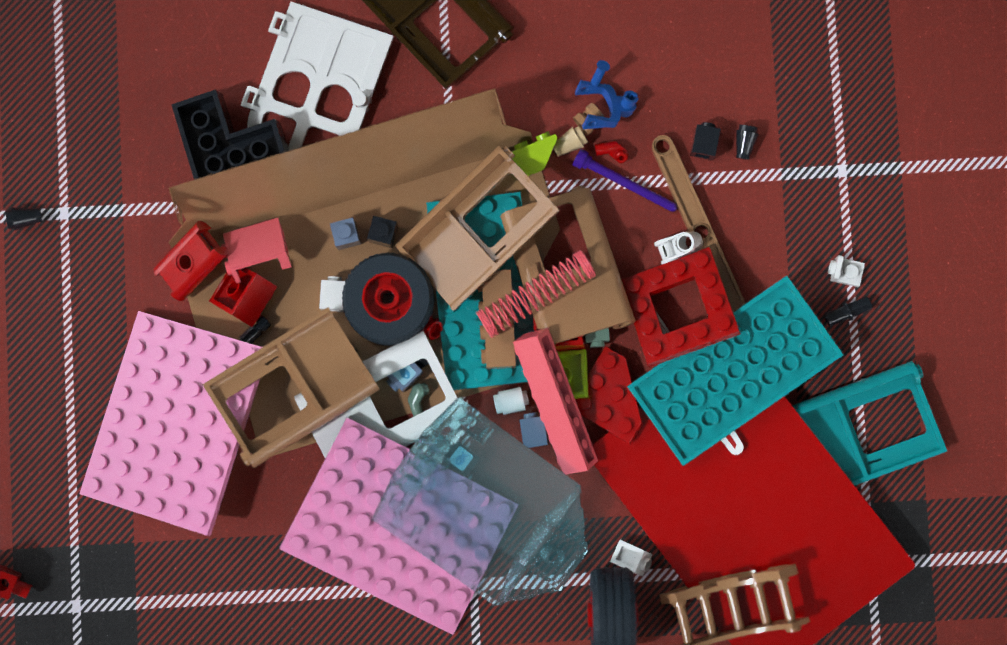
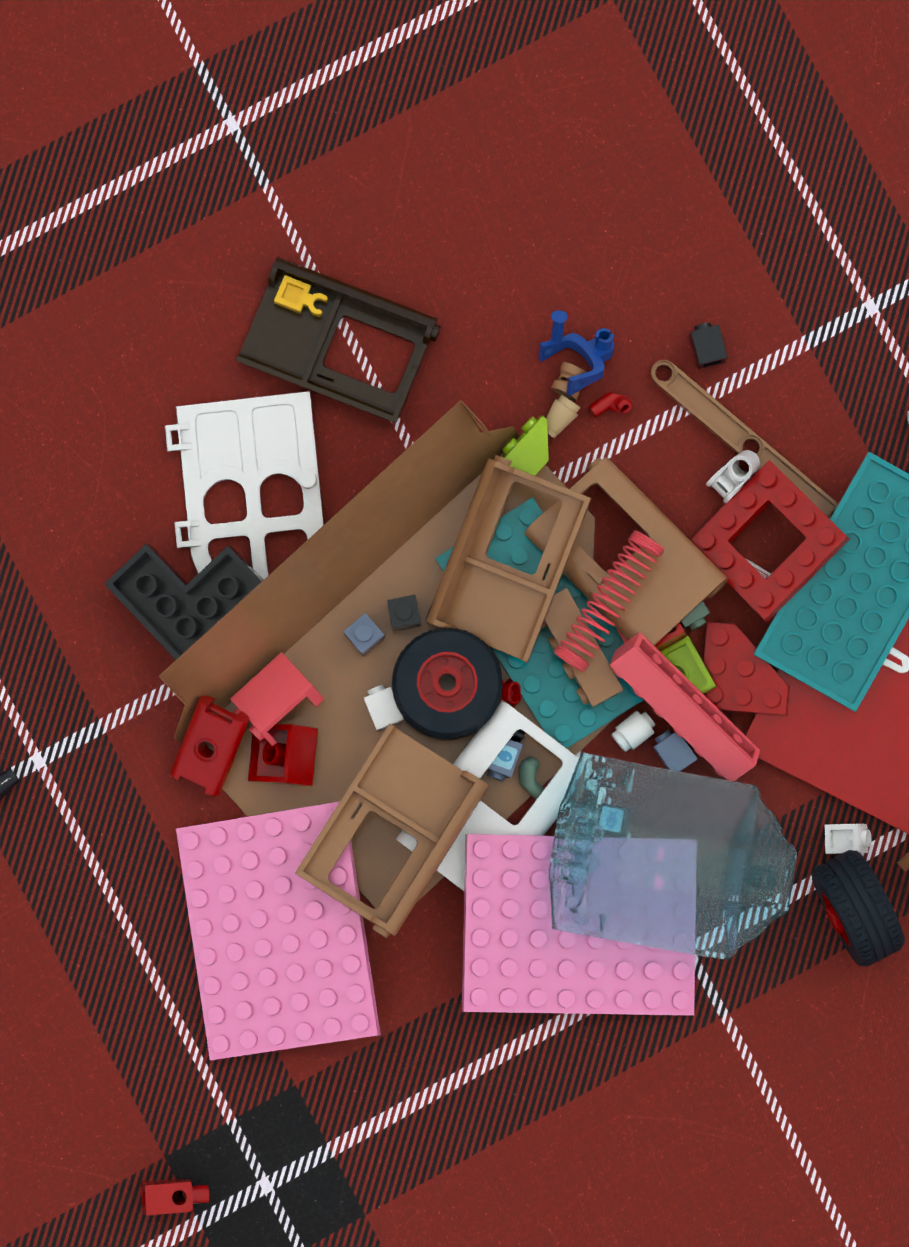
camera: 30 degrees left, 0 degrees up
(254, 332) = (315, 791): black axle -> none
(584, 160) = (586, 429): dark purple piece -> none
(745, 141) = (751, 324): black cone -> none

